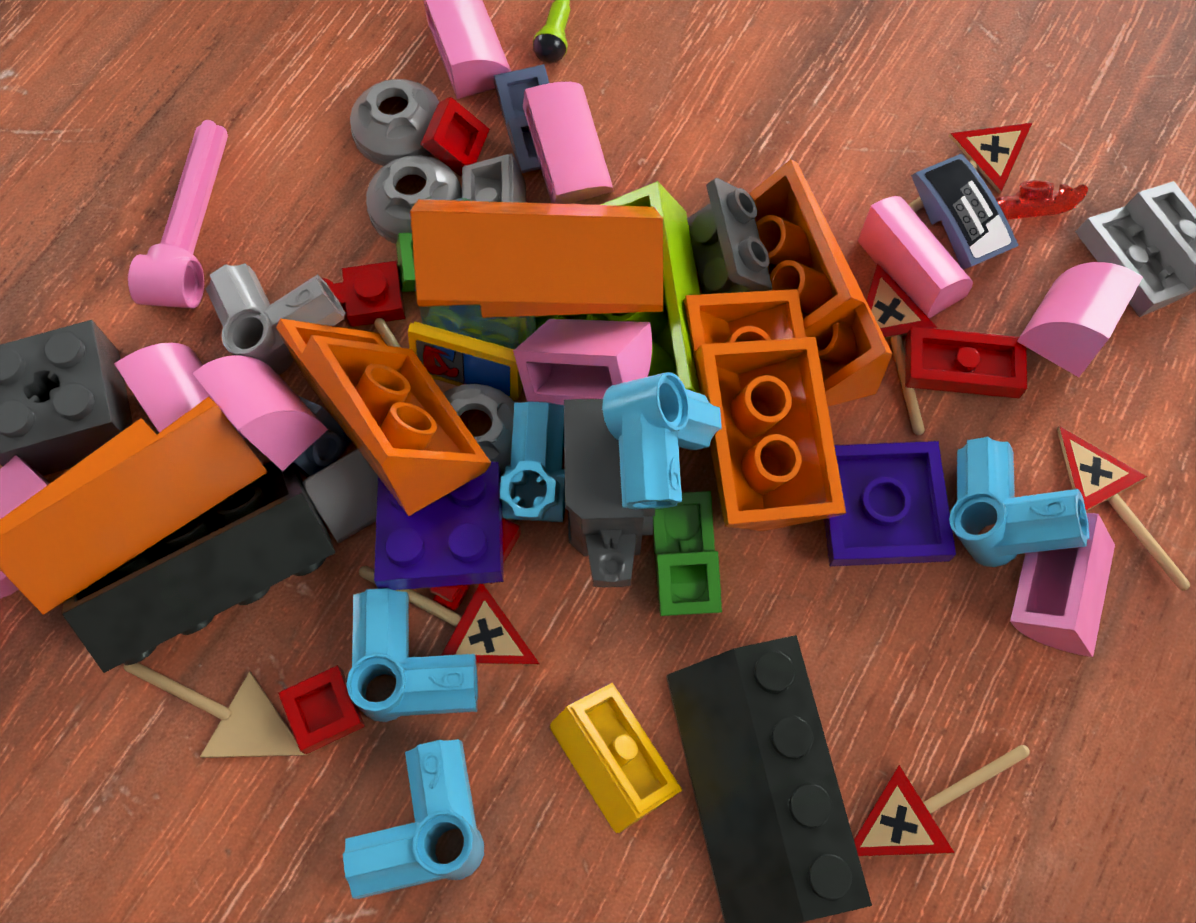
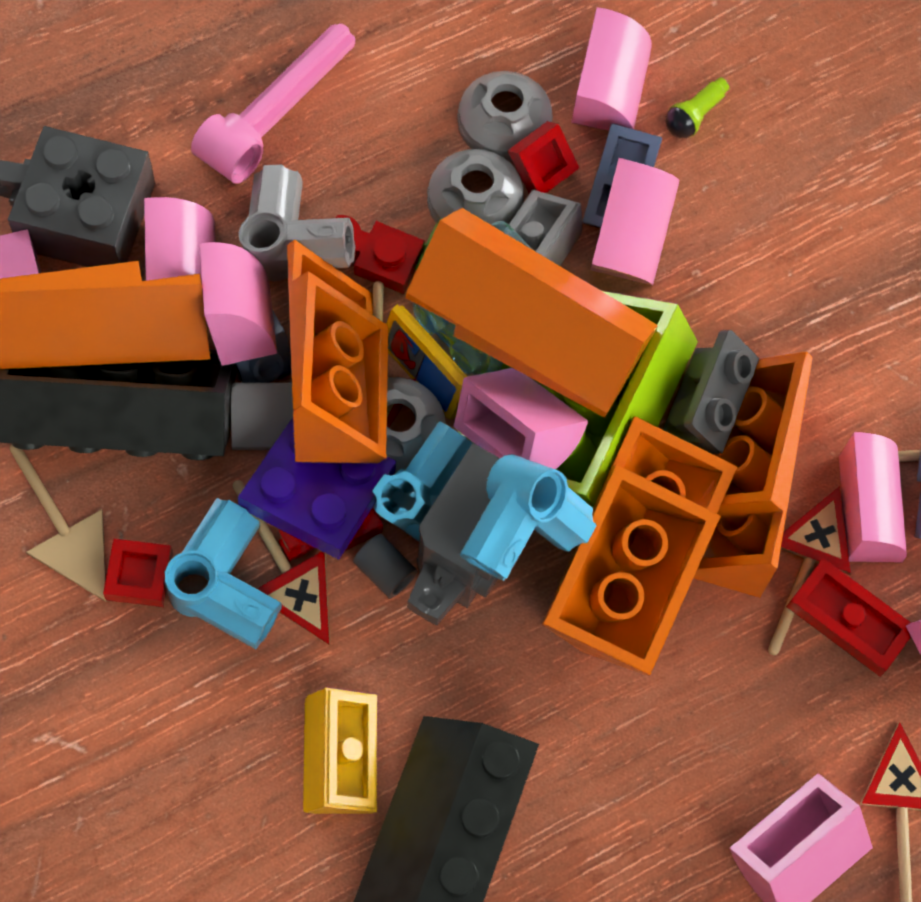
camera: 25 degrees right, 0 degrees up
(406, 853) = (136, 721): medium azure piece -> none
(545, 562) = (385, 566): none -> dark grey hinge
(687, 557) = (503, 630): bright green slope -> none
(891, 505) = (698, 693): dark purple plate -> none
(1022, 522) = (776, 762): medium azure piece -> none

